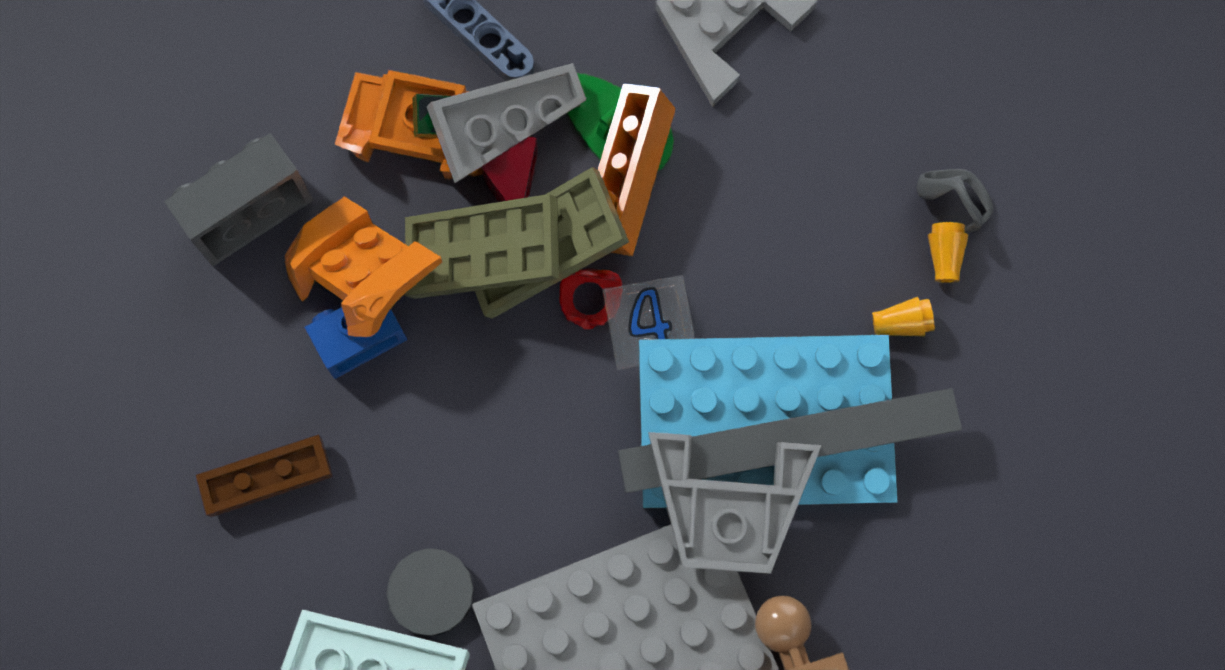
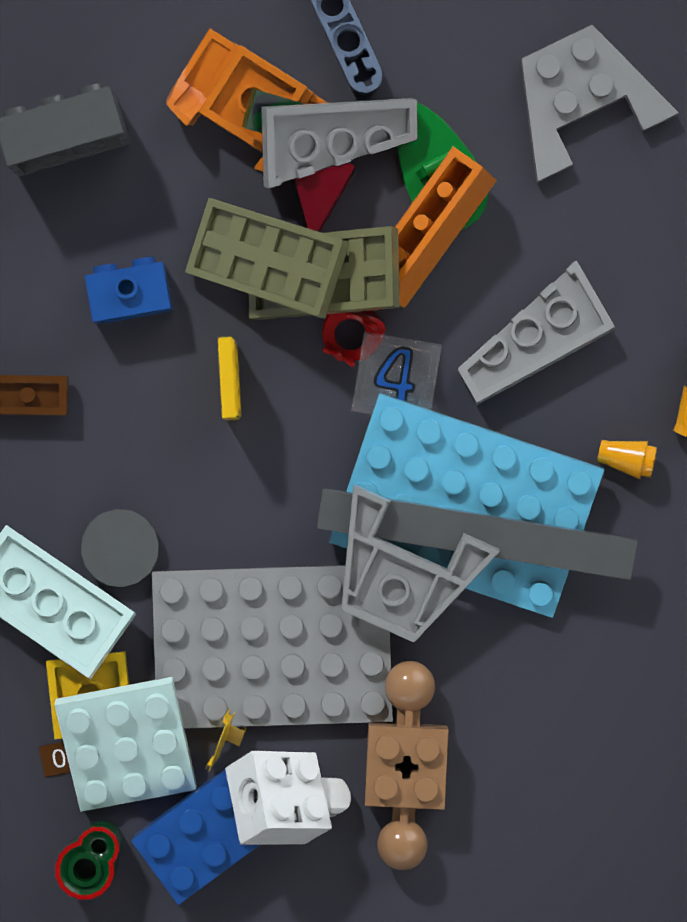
camera: 25 degrees right, 15 degrees up
(356, 264) = (150, 230): orange piece -> none
(484, 375) = (229, 378): none -> yellow tile
(780, 226) = (547, 330): none -> light grey wing

